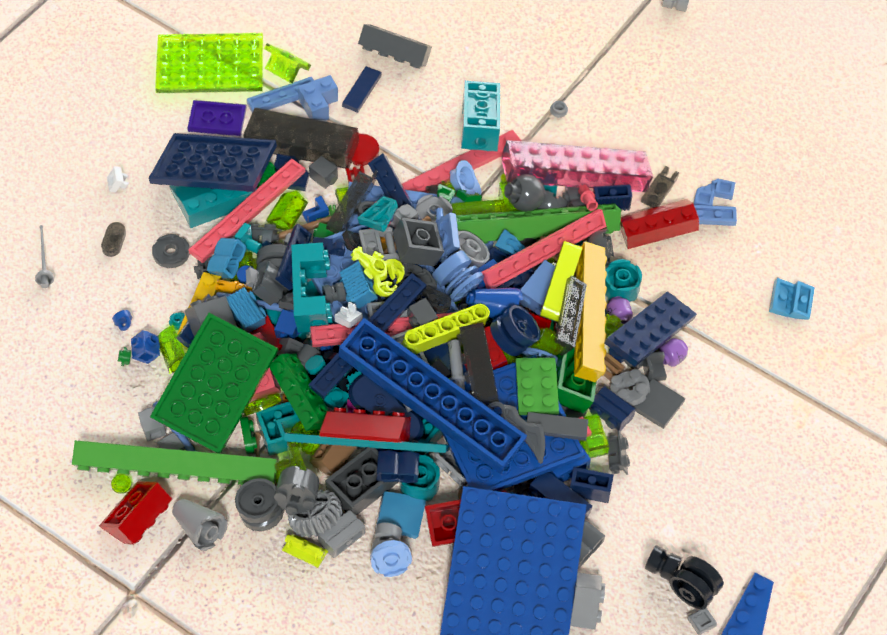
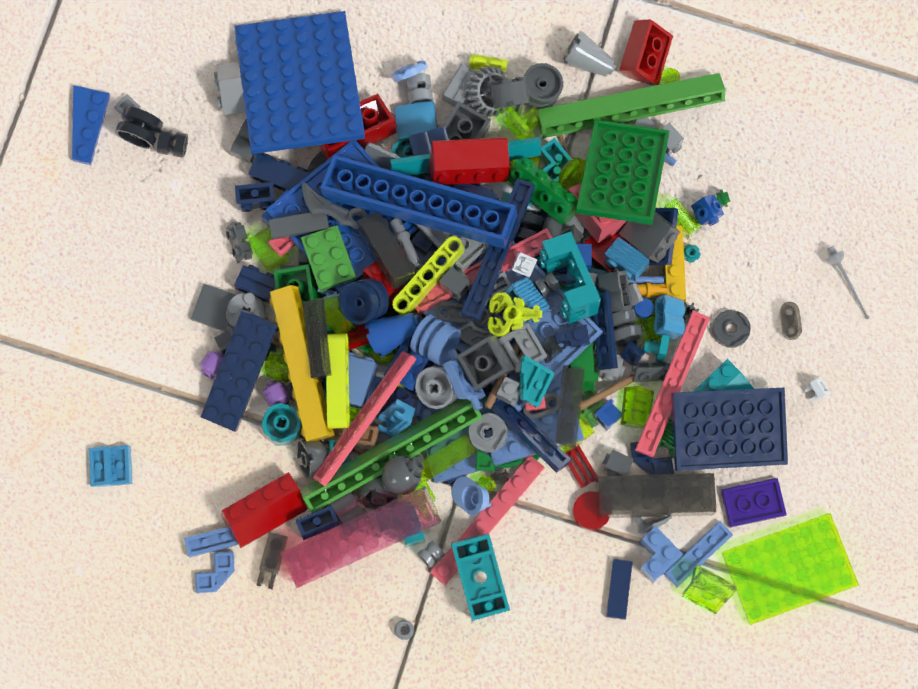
camera: 160 degrees right, 20 degrees up
(122, 317) = (742, 236): blue tile -> none
(249, 442) = (575, 148): green plate -> none
(315, 364) = (539, 218): teal tile -> none
(394, 45) = (603, 652): dark grey brick -> none
(468, 197) = (461, 471): green tile -> none
(587, 197) = (340, 501): coral axle -> none

